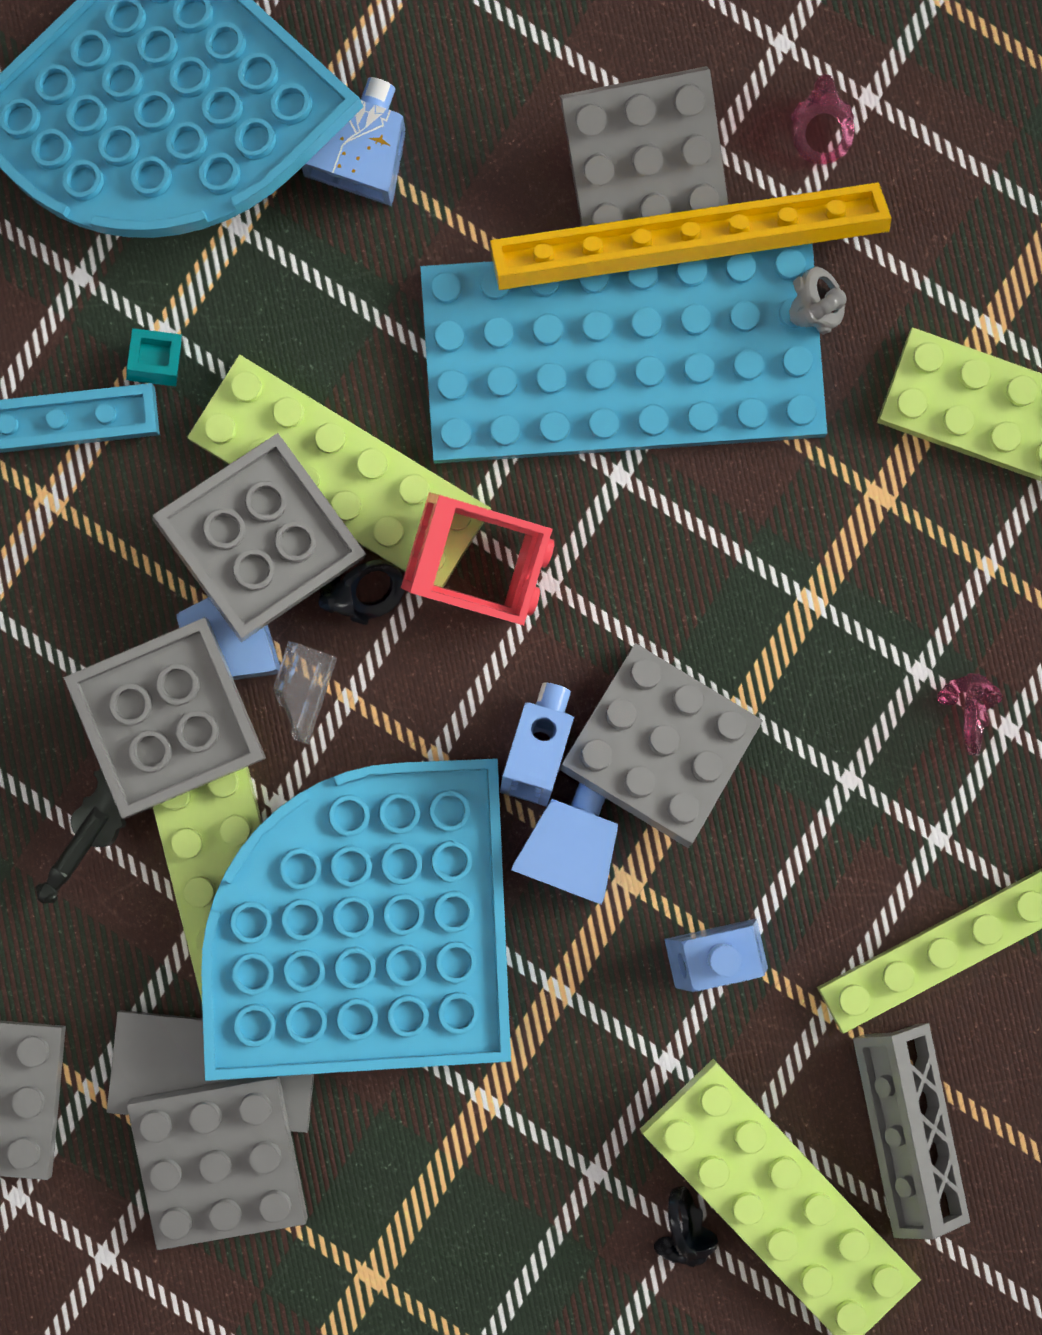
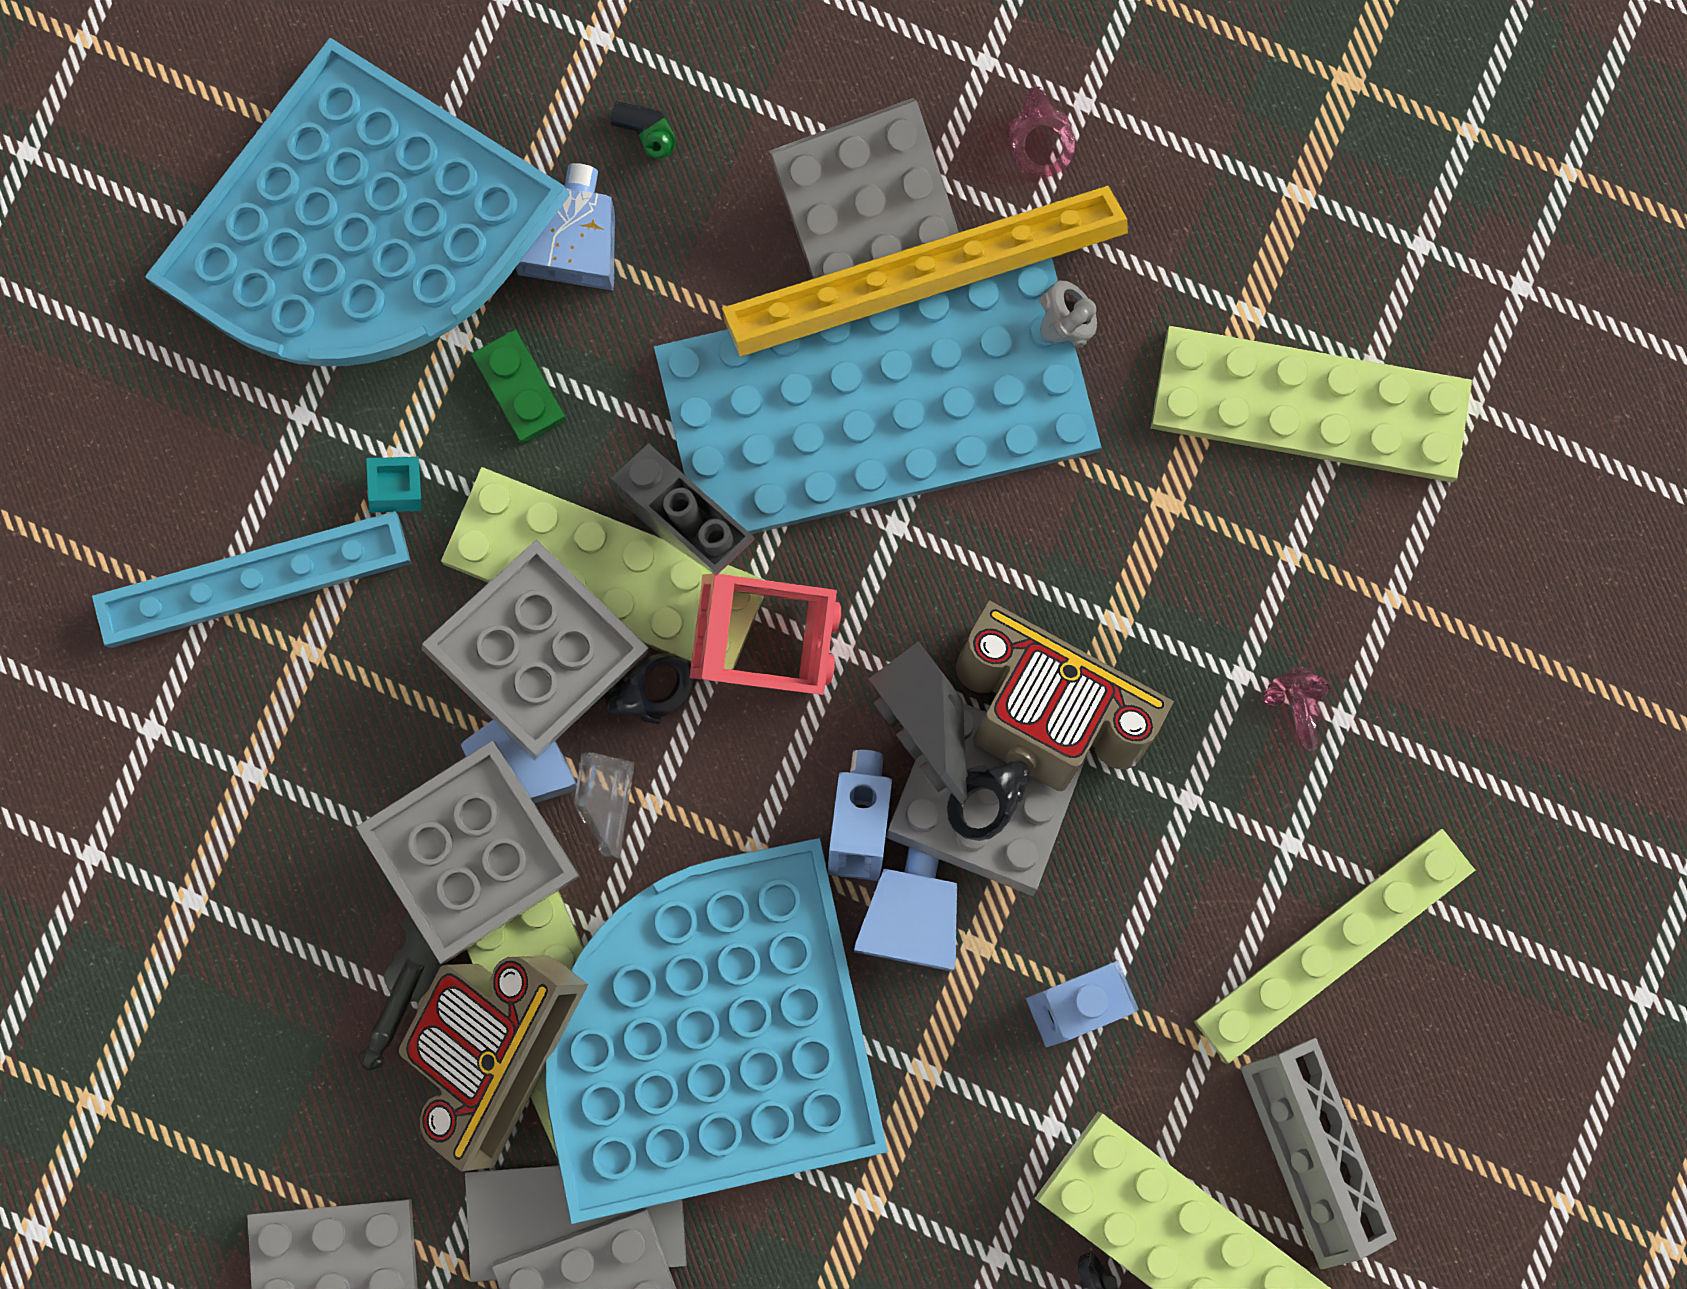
camera: 15 degrees left, 5 degrees down
(153, 903) = (486, 1049): none -> brick
(287, 284) = (518, 387): none -> green plate
(417, 428) = (680, 511): none -> dark grey slope
(452, 52) = (649, 125): none -> arm
(620, 661) = (931, 713): none -> dark grey slope
(681, 740) = (1009, 785): none -> black piece
(739, 668) = (1054, 700): none -> brick

